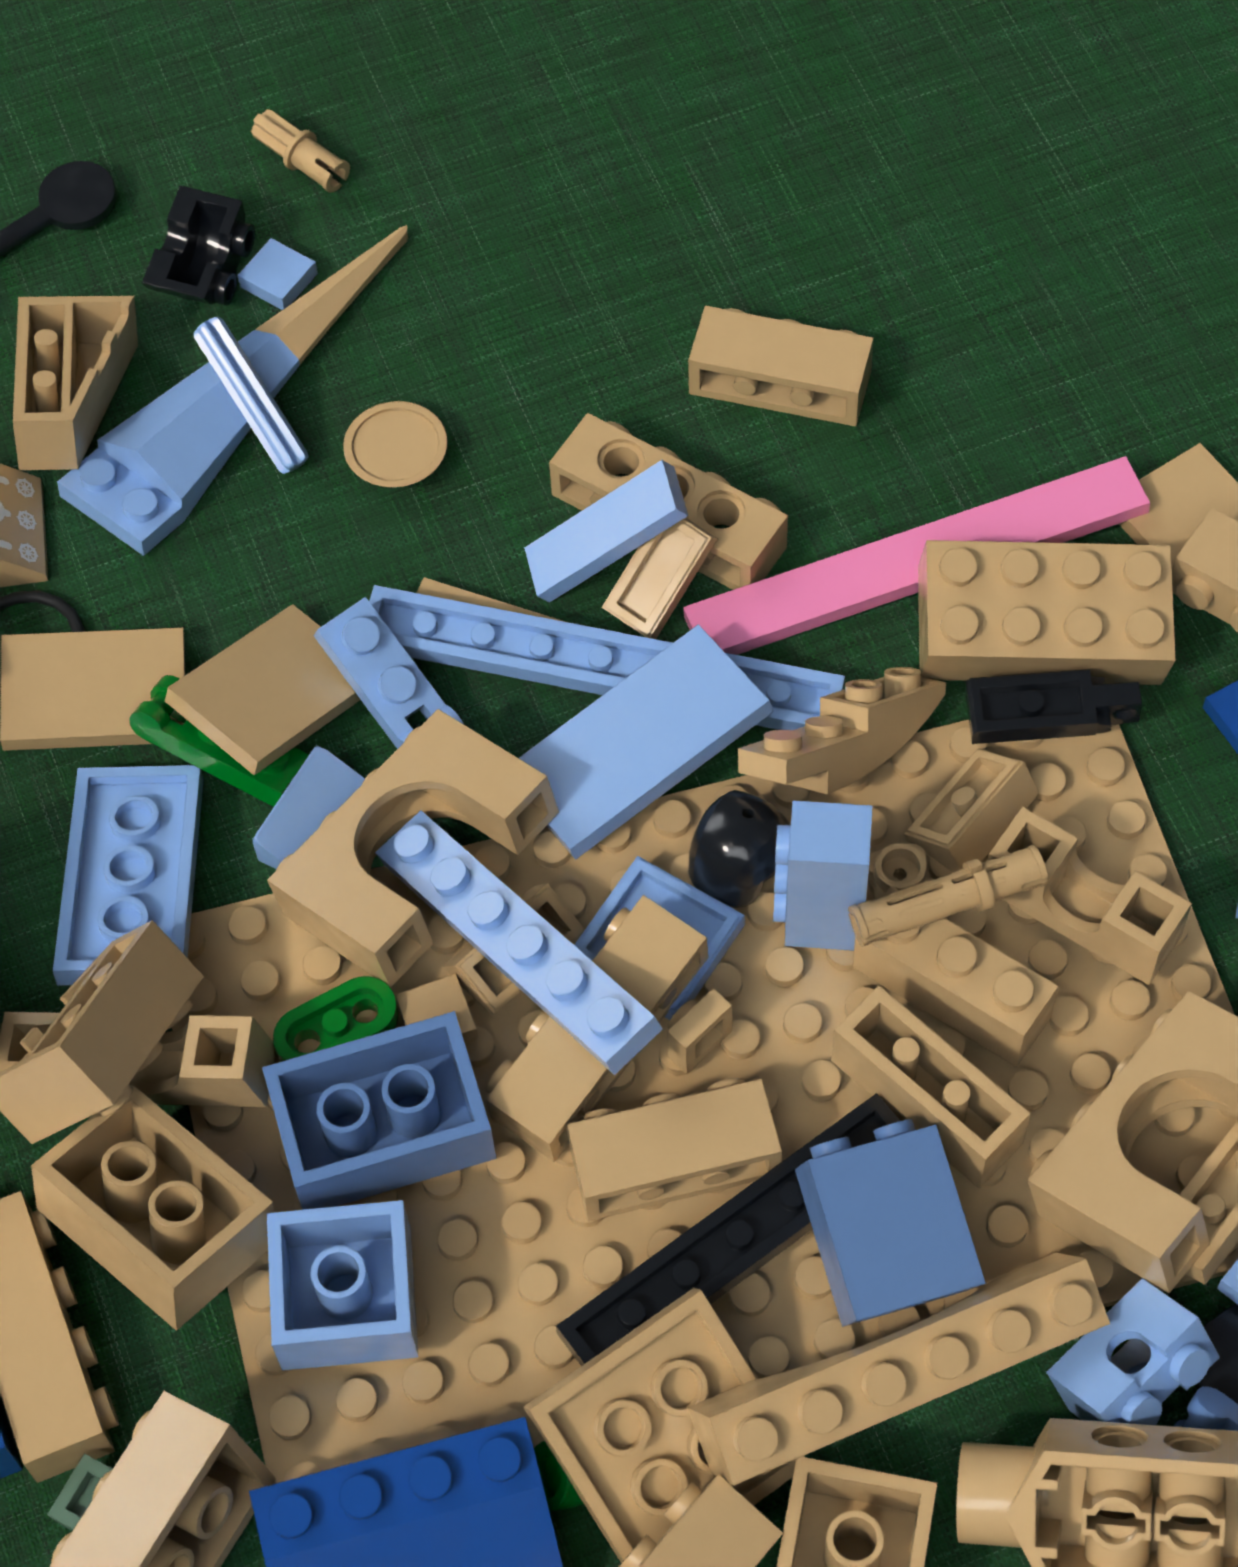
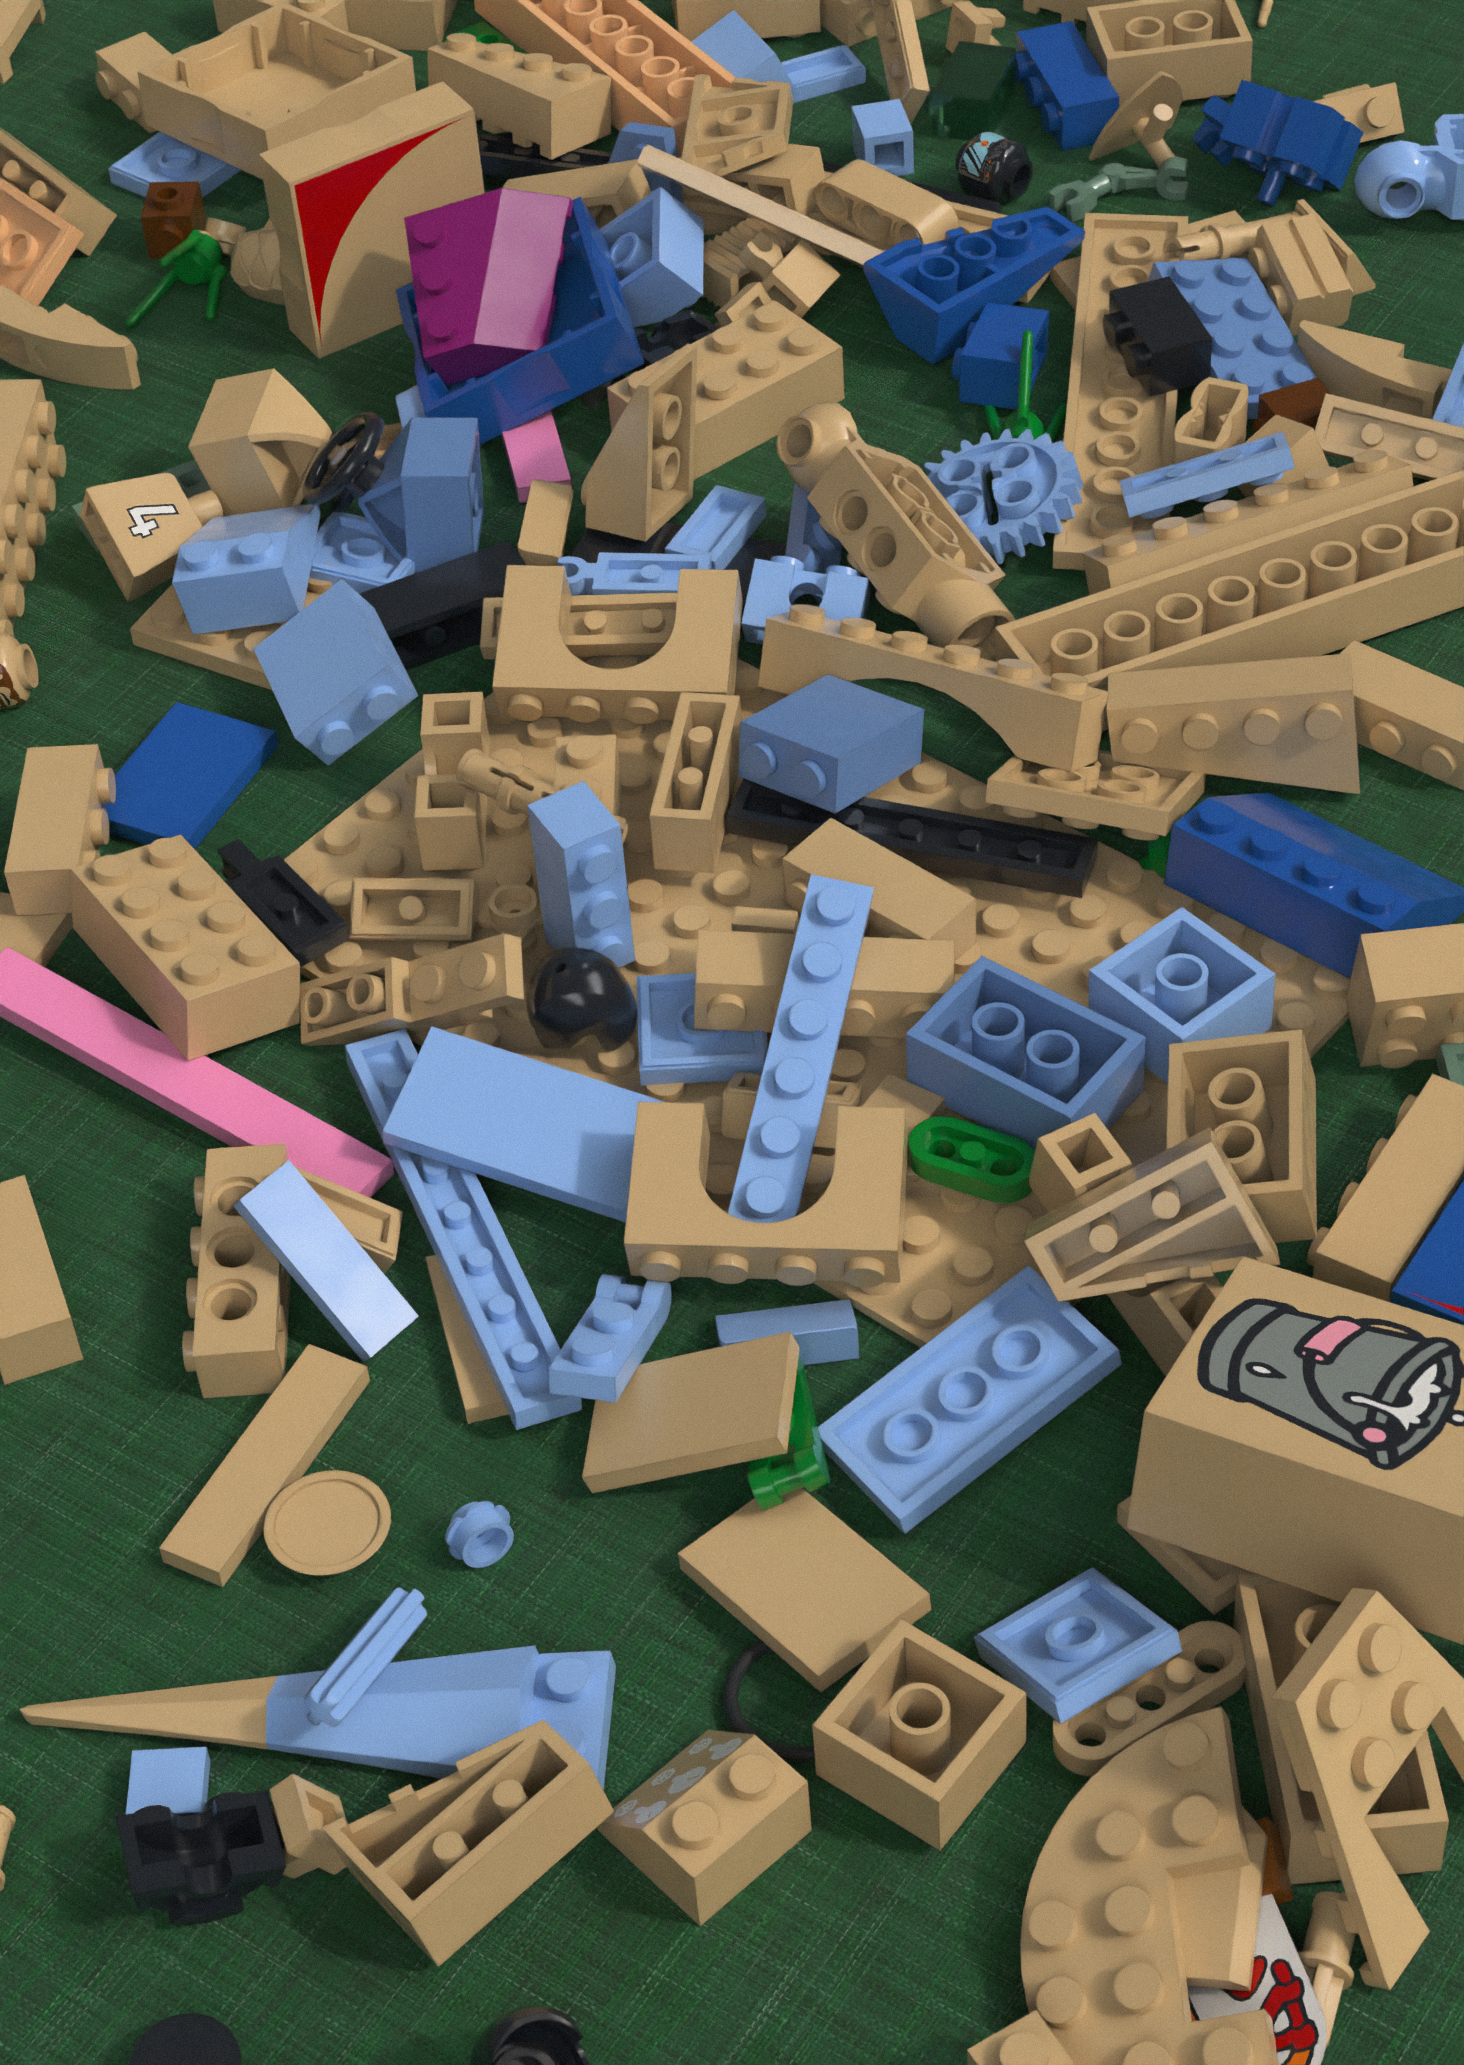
camera: 125 degrees left, 15 degrees down
(168, 320) = (299, 1817): none -> tan tile
(309, 527) = (479, 1533): none -> light blue plate
(489, 446) = (265, 1460): none -> tan tile

